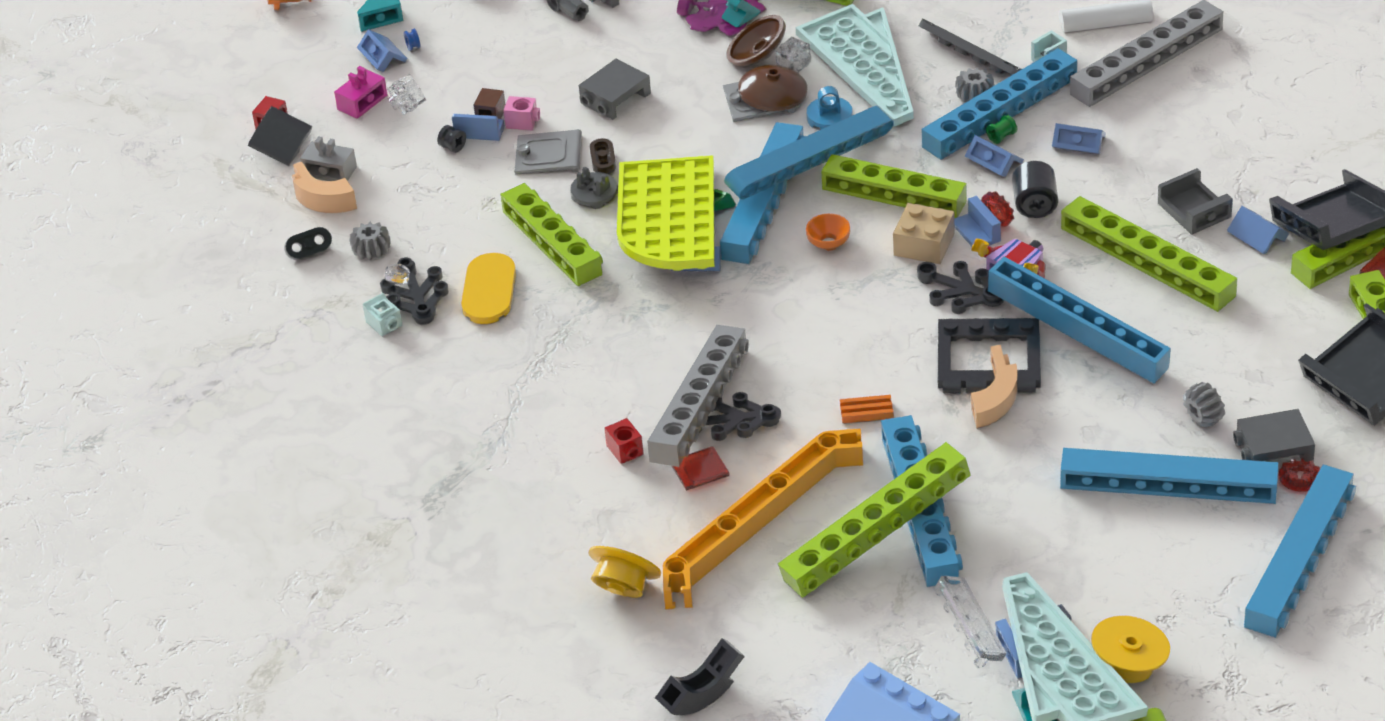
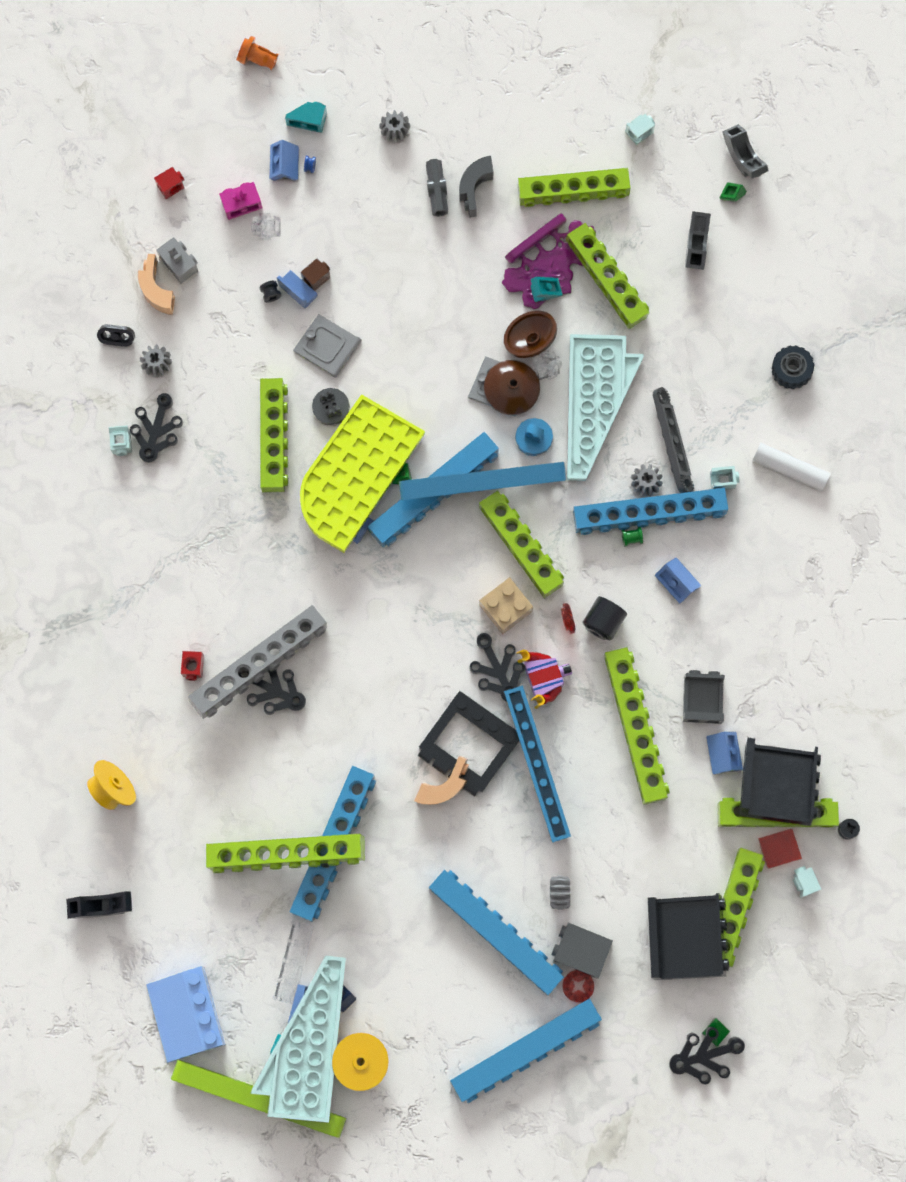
camera: 30 degrees right, 35 degrees up
(280, 136) = (160, 213): black slope -> none
(397, 274) = (150, 409): clear tile -> none
(488, 288) = (204, 457): yellow tile -> none
(521, 113) = (331, 289): bright pink brick -> none
(602, 156) = (355, 378): dark brown plate -> none
(613, 86) = (407, 313): dark grey panel -> none
(701, 468) = (225, 721): clear red piece -> none
(757, 509) = (227, 783): light orange piece -> none
(828, 226) = (446, 550): orange piece -> none
(866, 408) = (345, 730): orange tile -> none
(978, 223) = (547, 619): medium blue panel -> none
(991, 156) = (609, 558): medium blue panel -> none
(1146, 53) = (852, 513): light grey brick -> none

